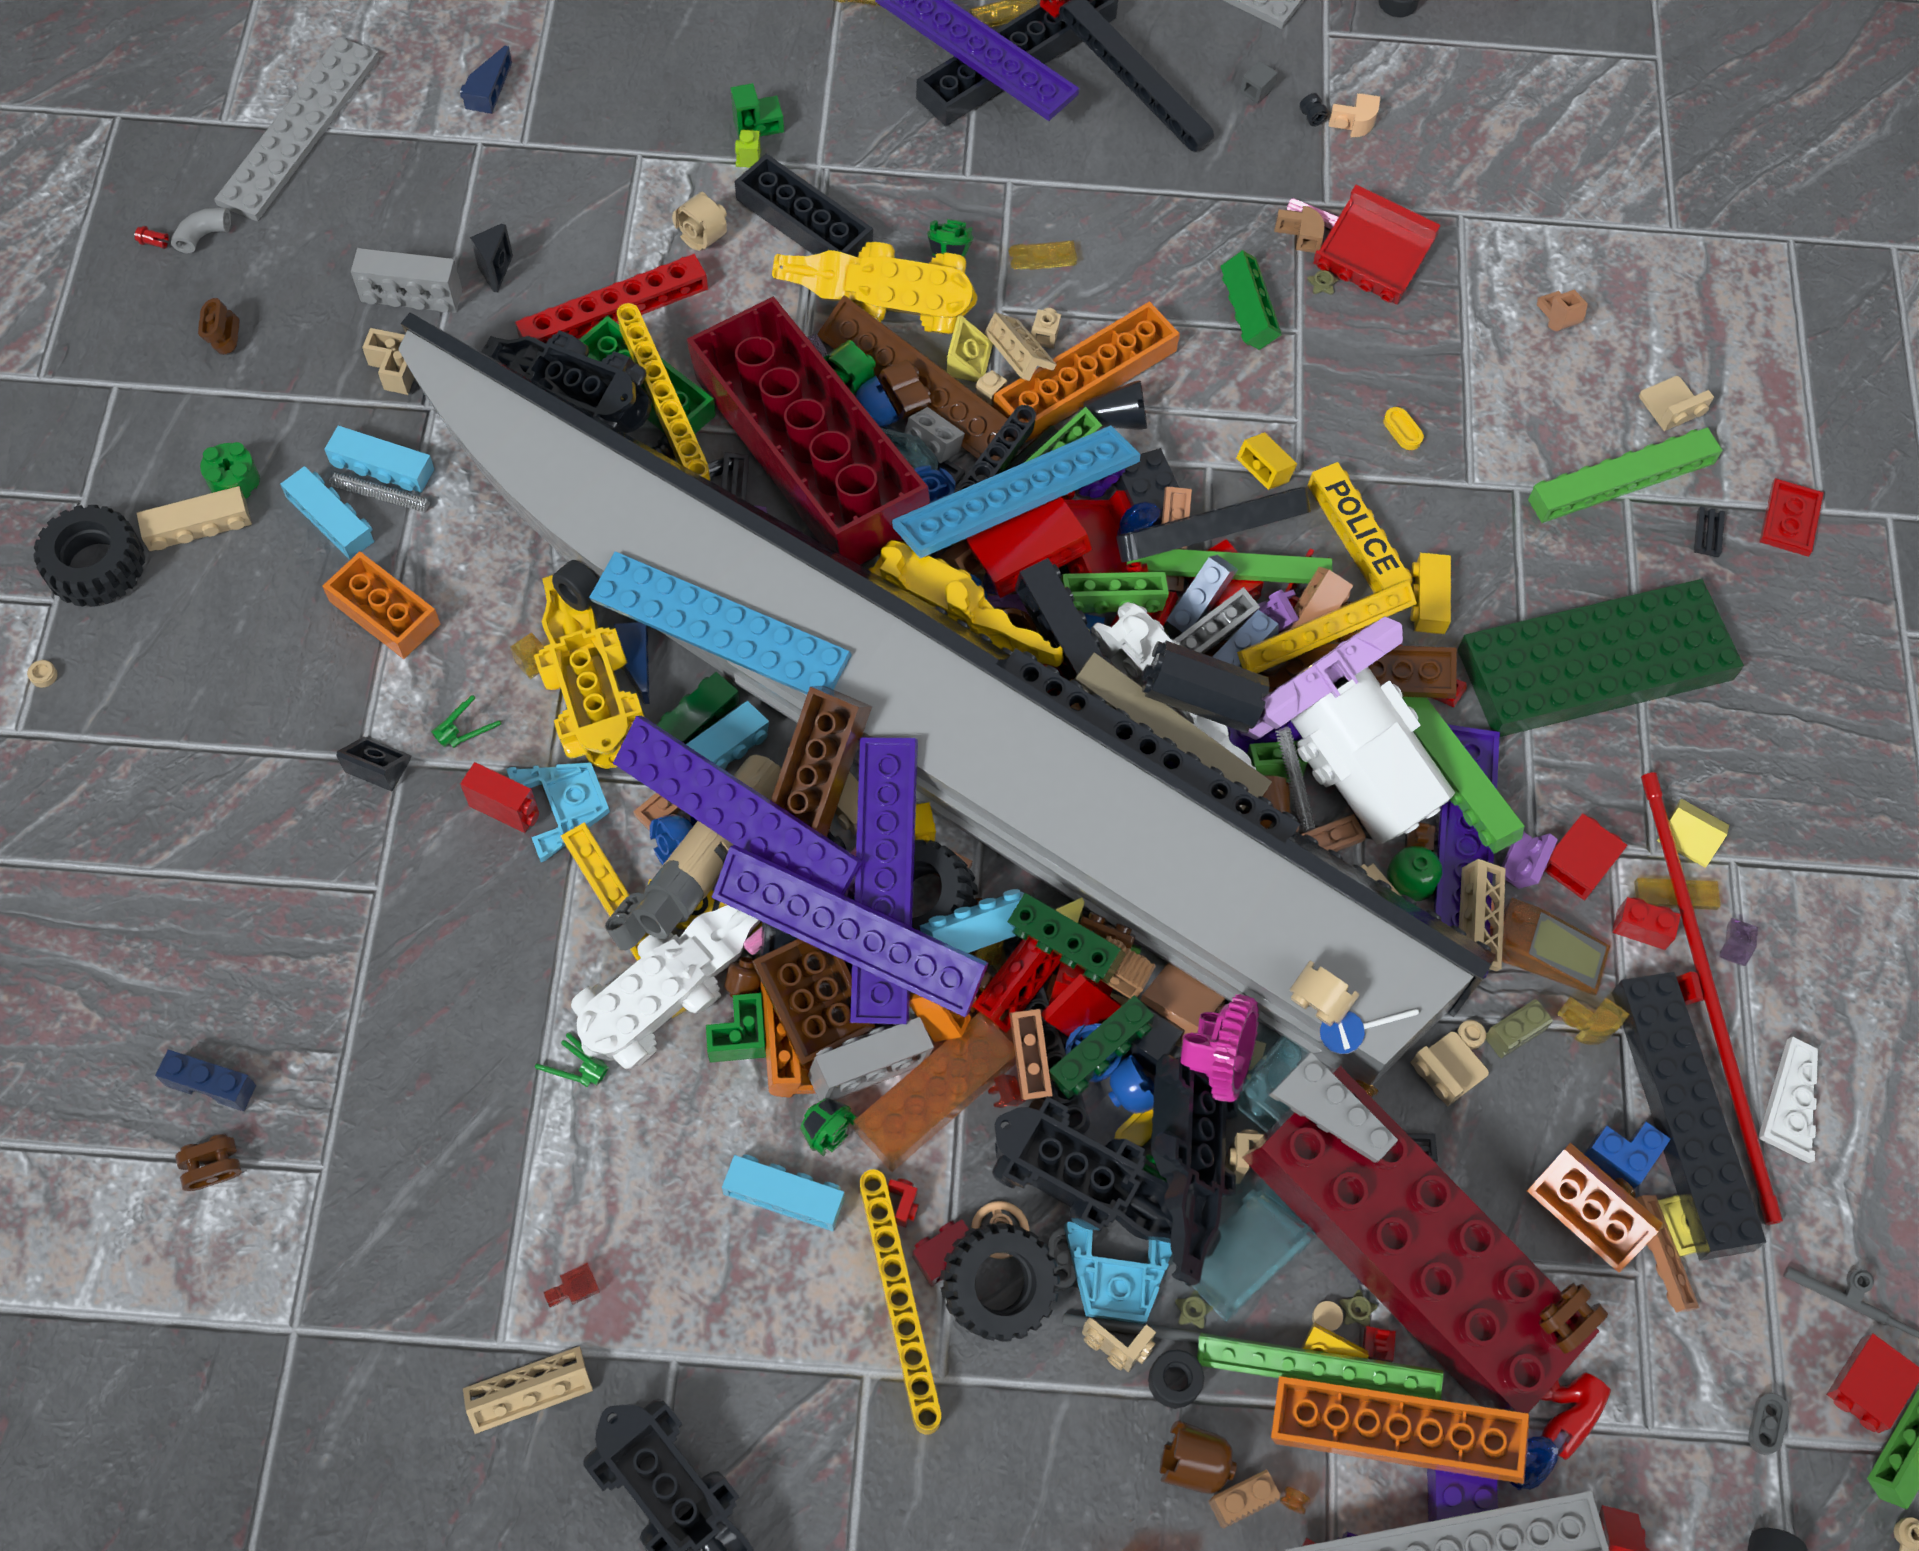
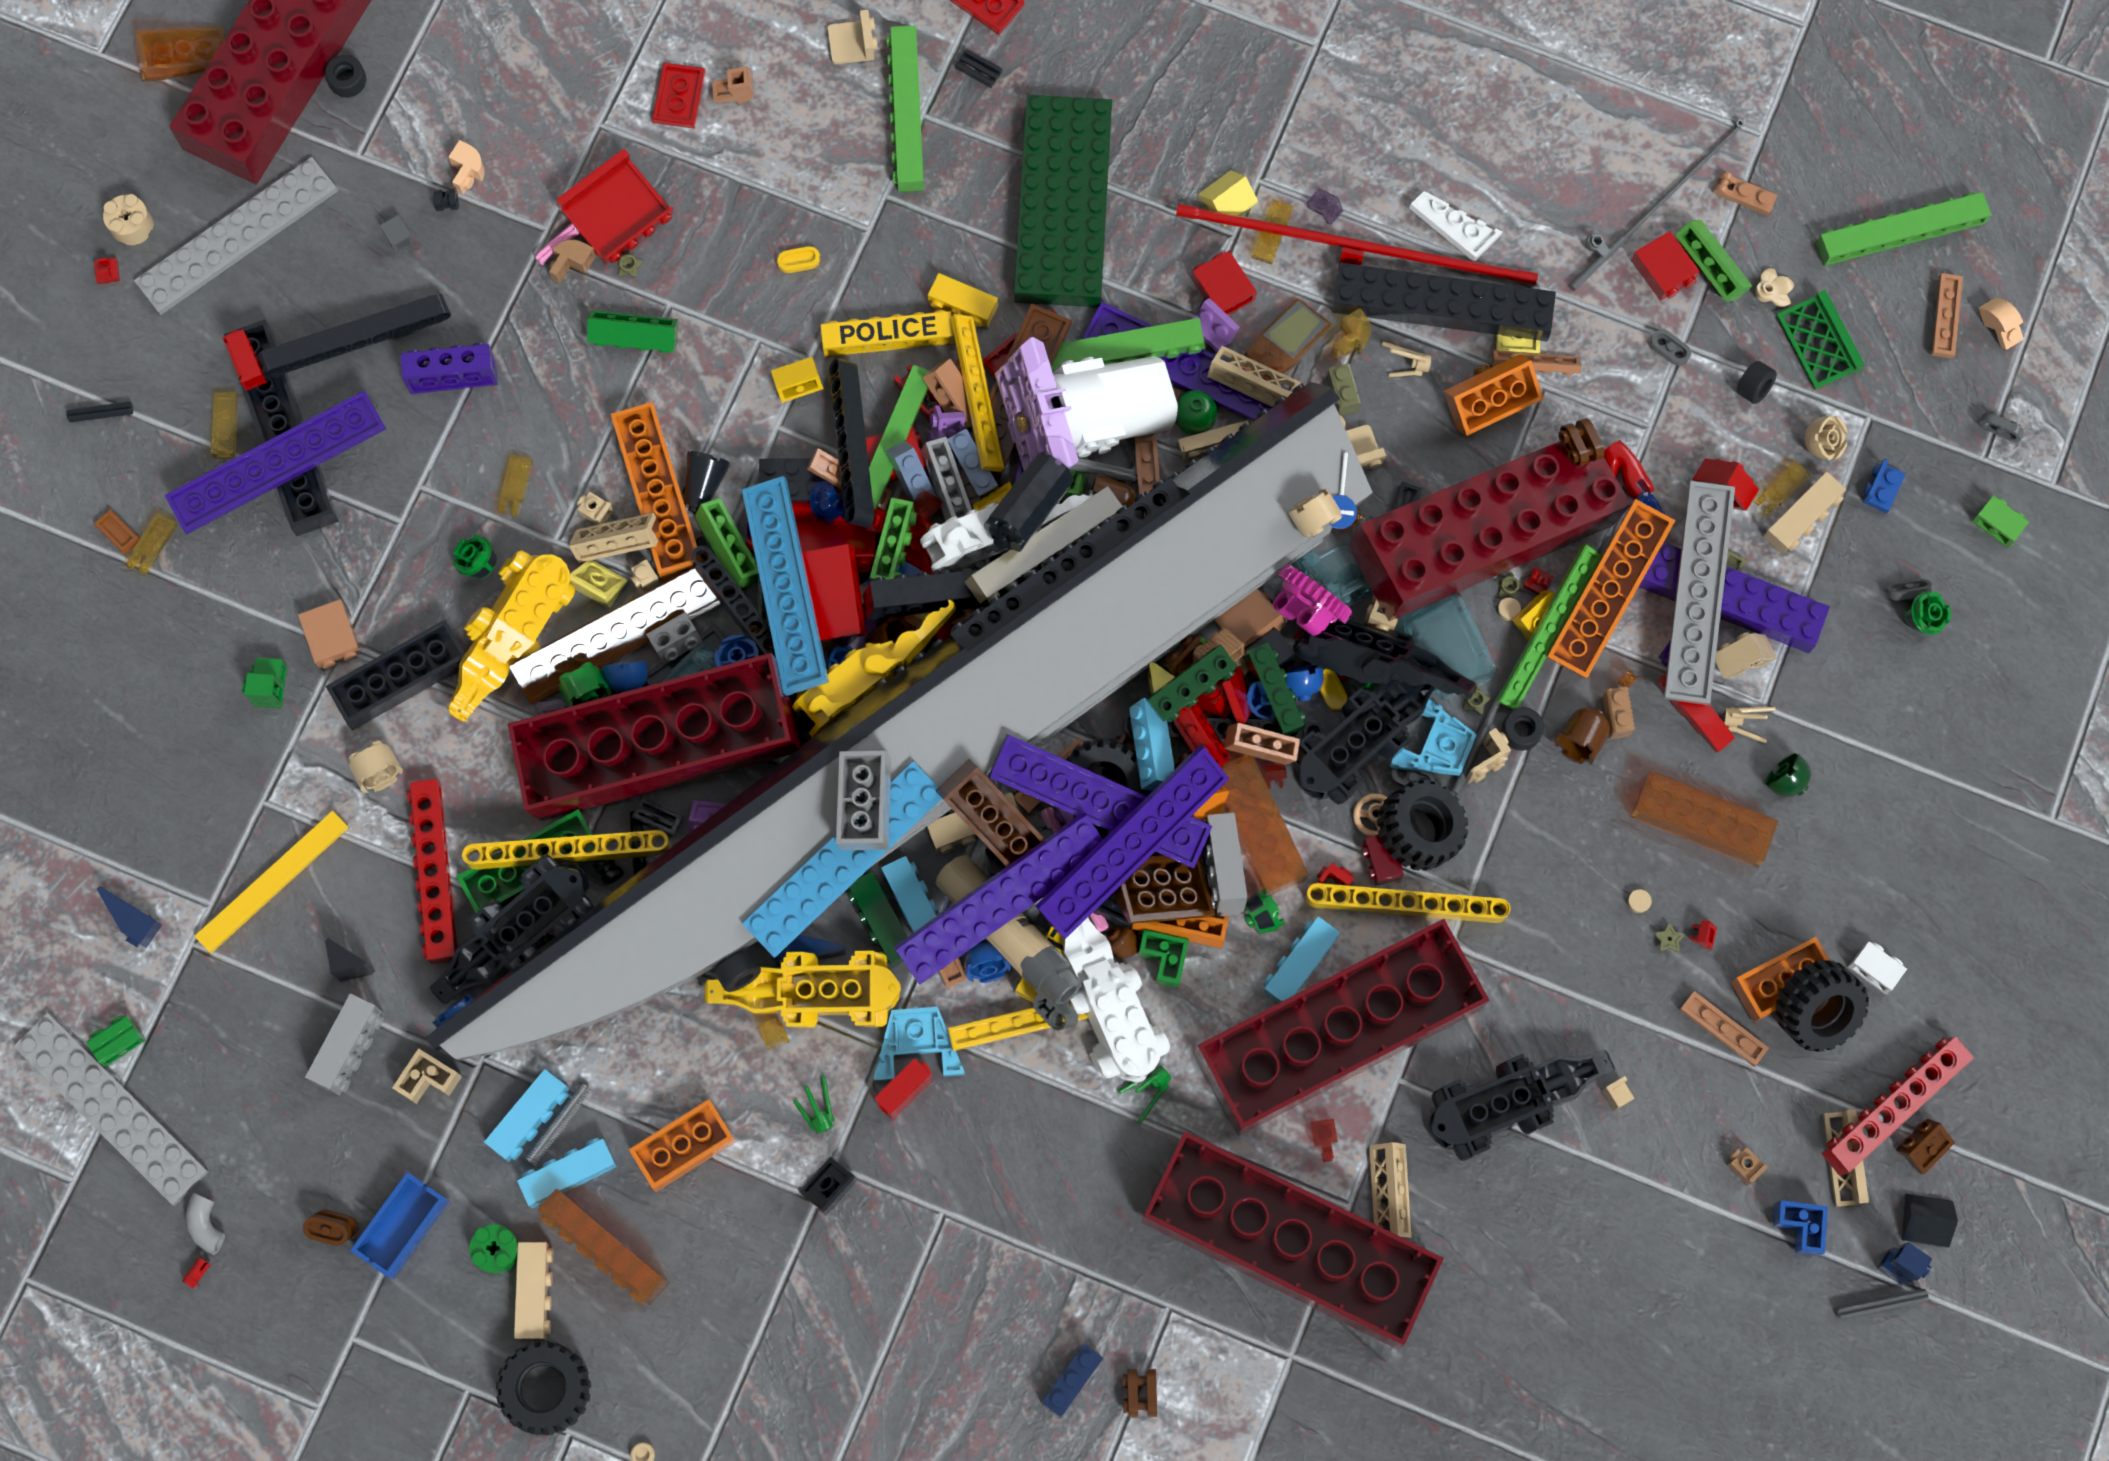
camera: 70 degrees left, 10 degrees up
(233, 382) = (400, 1226): none -> blue piece
(250, 563) = (603, 1247): none -> clear orange brick
(364, 107) = (115, 1040): none -> green brick
(420, 1279) = (1292, 1240): none -> dark red brick
(561, 182) = (271, 882): none -> yellow tile
(709, 1256) = (1341, 1027): none -> dark red brick
(748, 148) = (303, 702): lime brick -> none
(781, 608) = (852, 790): none -> light grey brick
(826, 150) = (330, 634): none -> nougat brick
(904, 389) = (625, 646): reddish brown brick -> none
(1137, 158) = (452, 374): none -> dark purple brick
(1175, 617) = (926, 505): none -> clear red tile
(1324, 1100) = (1391, 542): light grey wing -> none
(1528, 270) = (678, 95): none -> red tile
(1598, 1108) = (1419, 360): none -> tan plant
(1626, 1158) = (1463, 355): blue brick -> none
(1646, 923) = (1291, 264): red brick -> none

